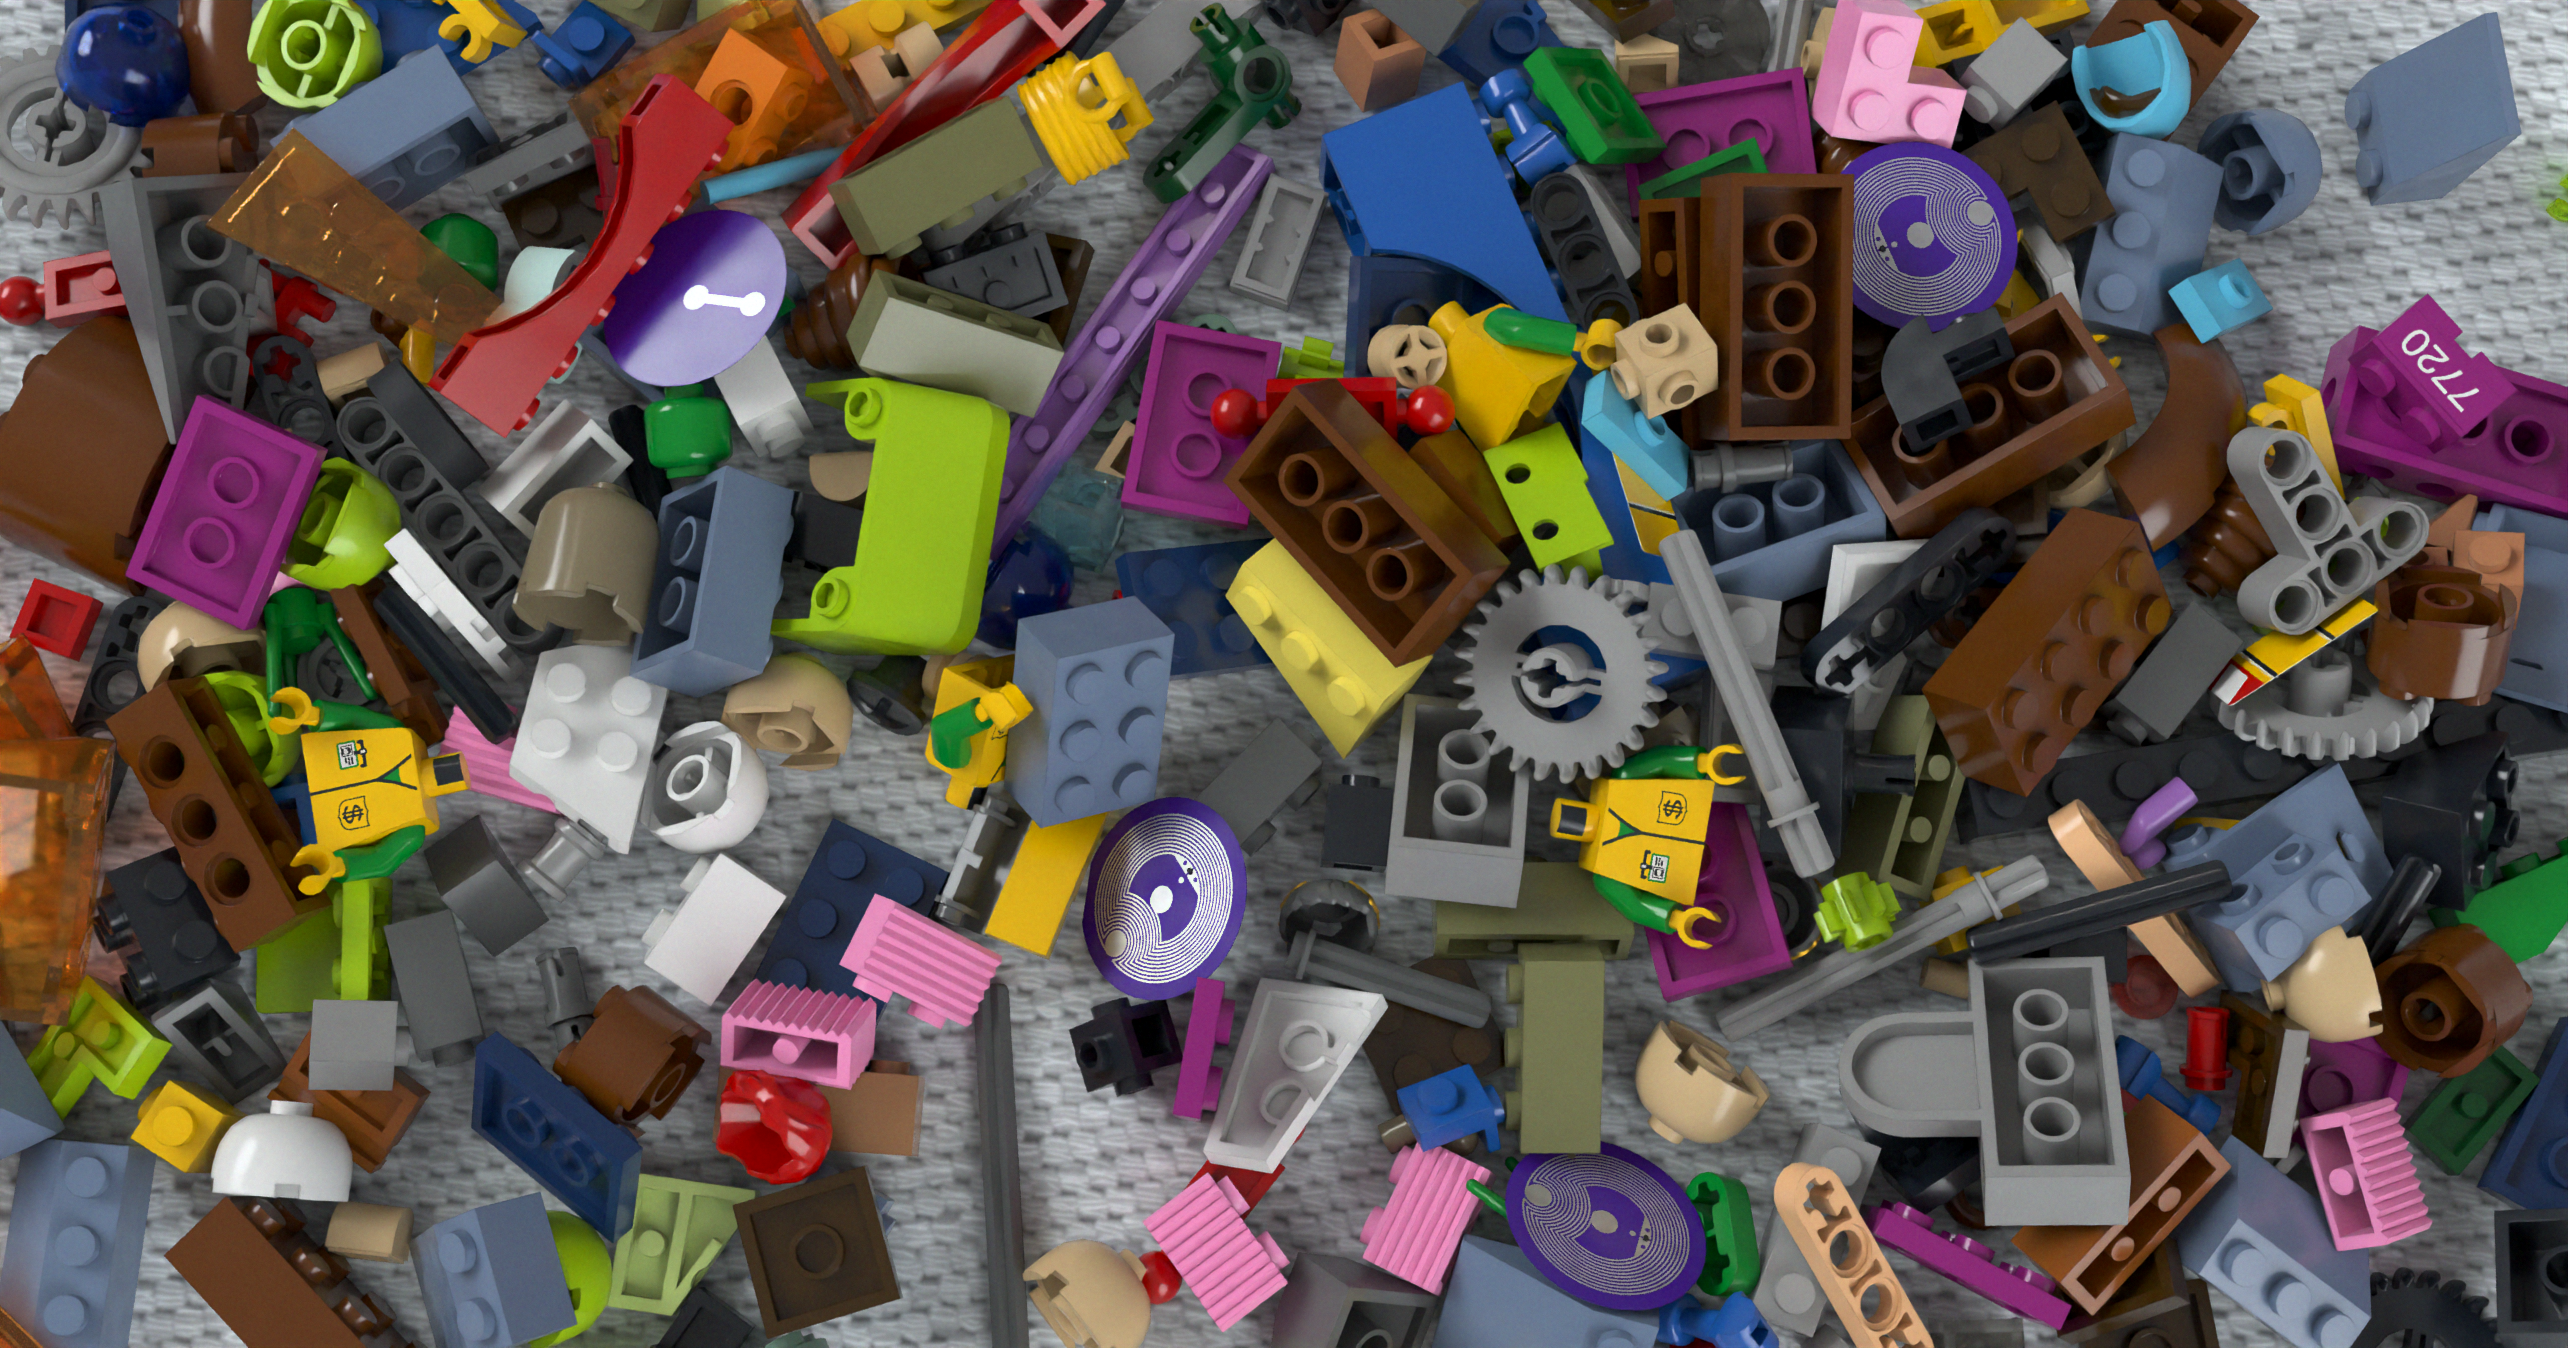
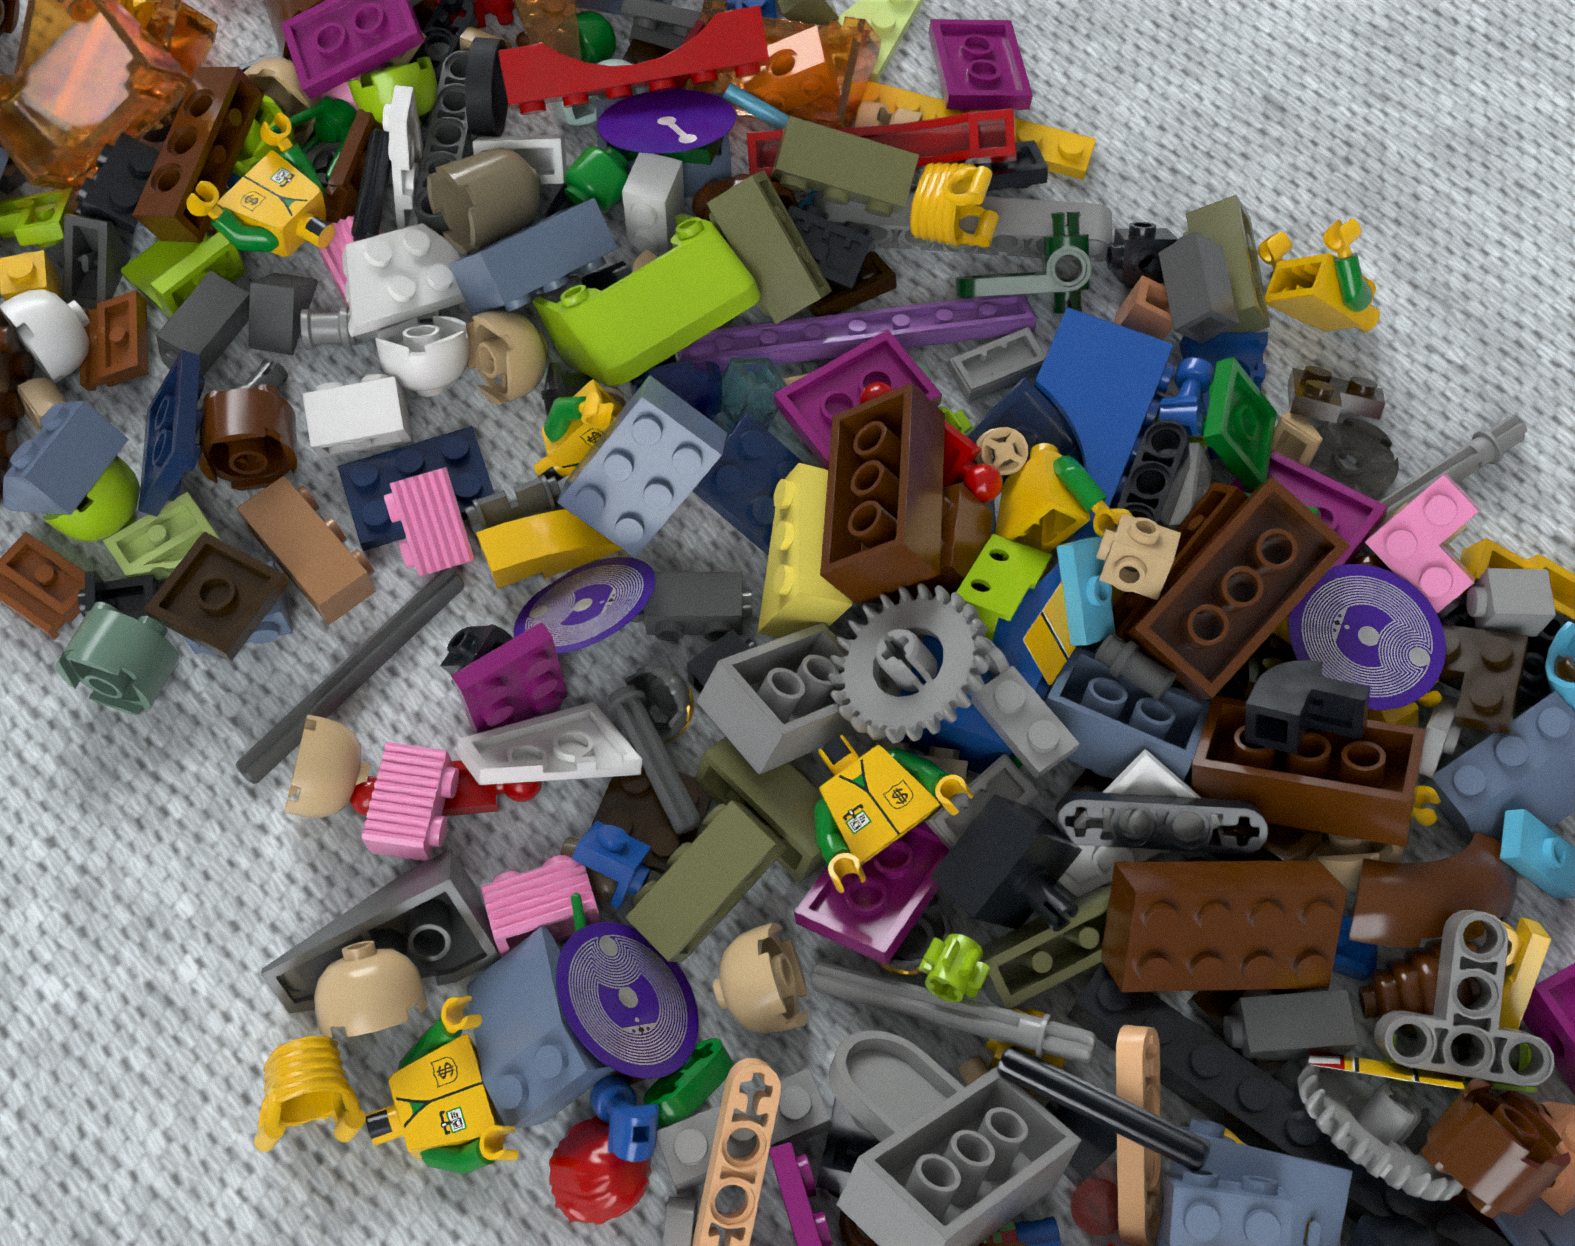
camera: 50 degrees right, 15 degrees down
(57, 619) = (241, 39): red plate -> none
(356, 1045) = (134, 306): light grey brick -> none
(774, 1125) = (270, 516): red hair -> none
(799, 1034) = (332, 493): bright pink brick -> none
(1746, 704) = (992, 782): light grey axle -> none
(2151, 818) = (1191, 1090): medium lavender arm -> none

